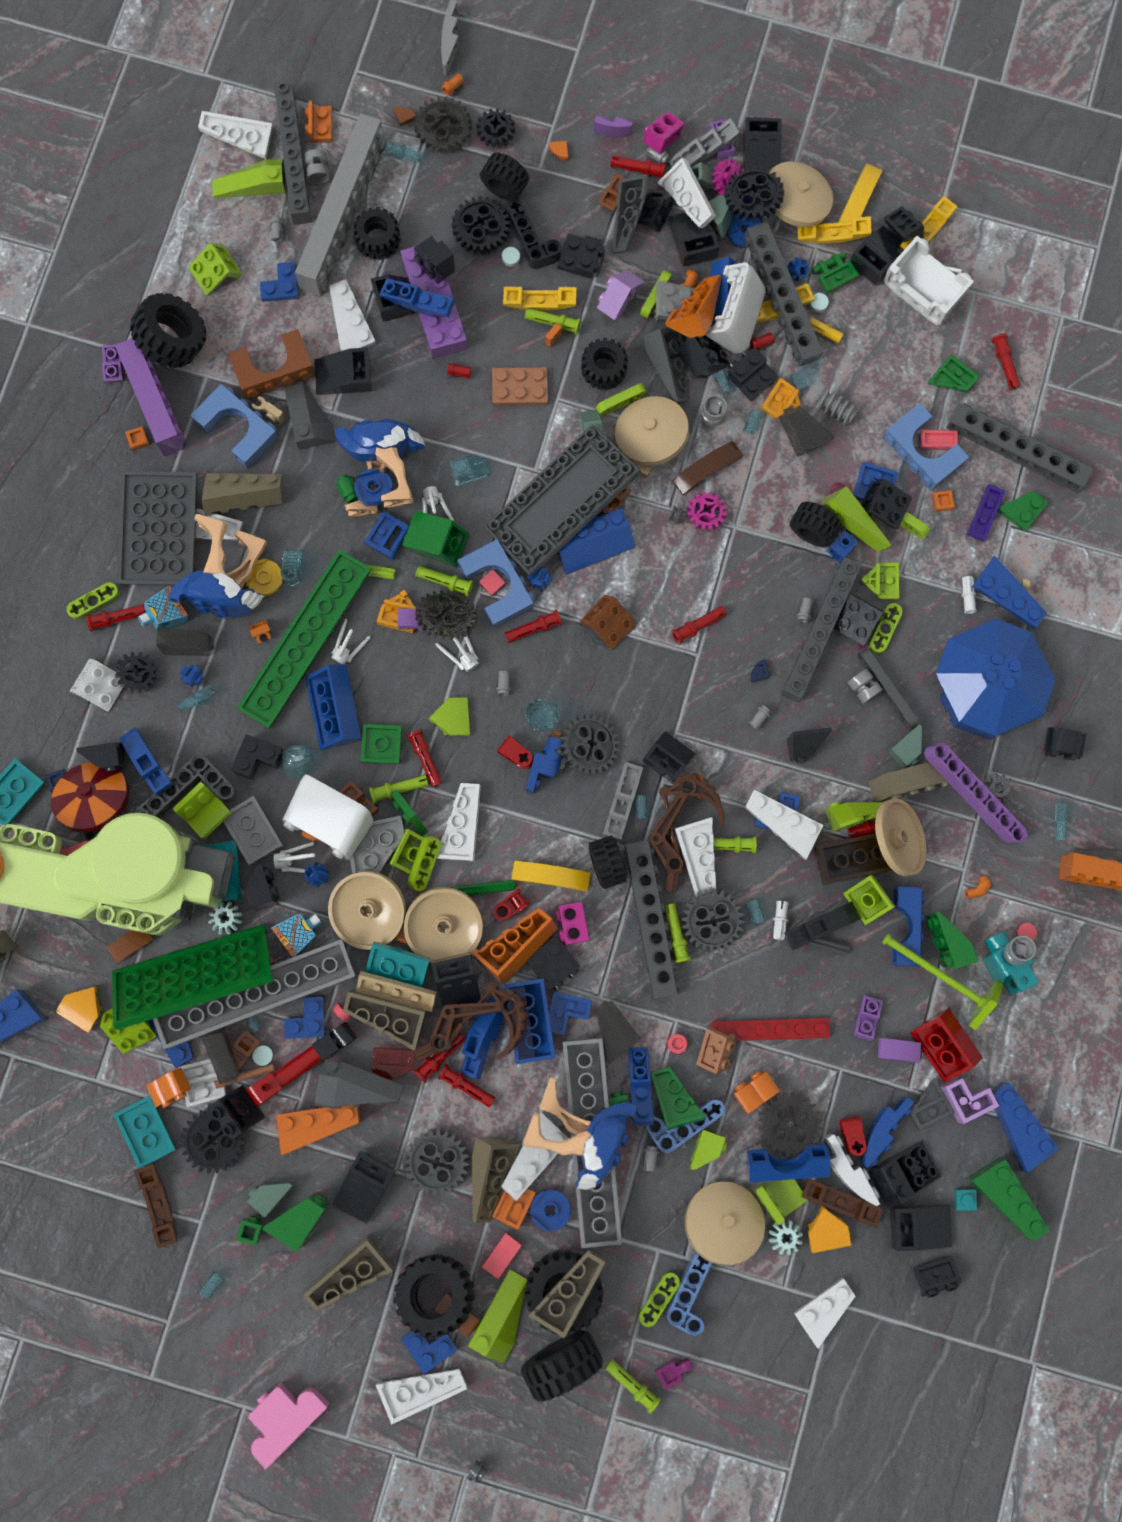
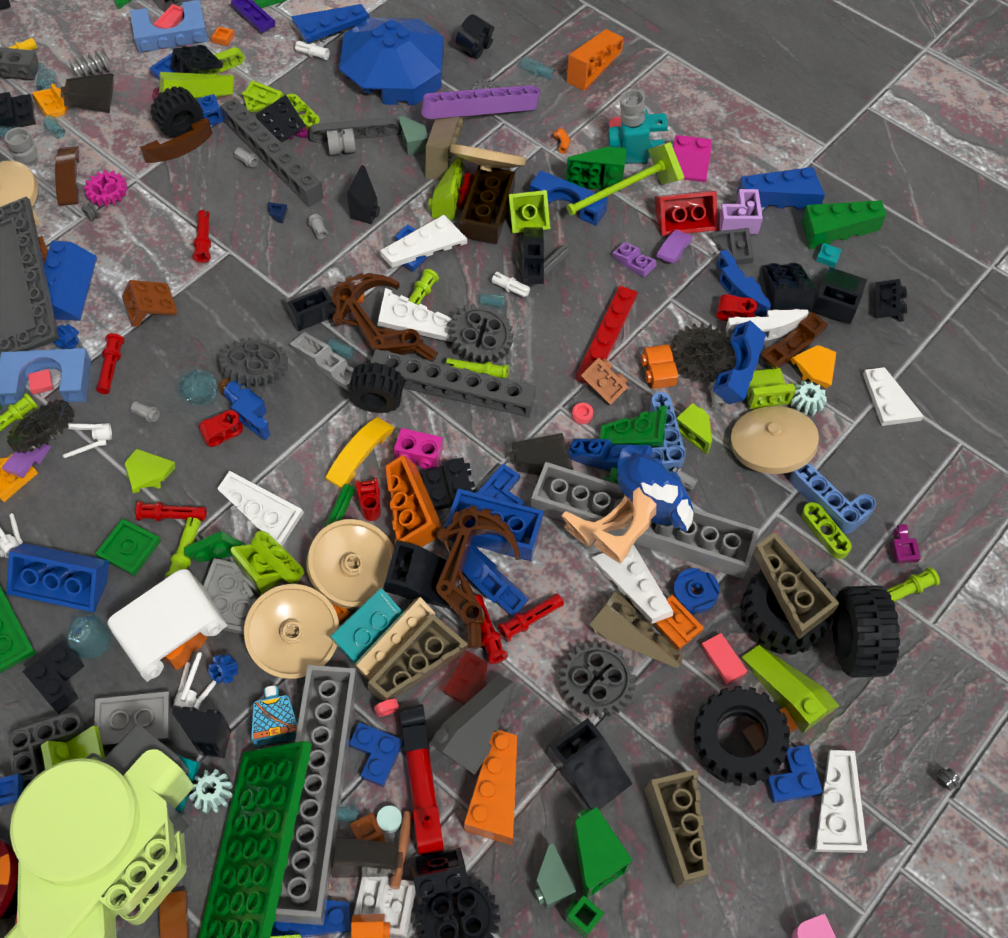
camera: 60 degrees left, 20 degrees down
(786, 545) = (178, 146): none -> reddish brown slope
(1016, 1022) = (693, 156): none -> dark pink slope

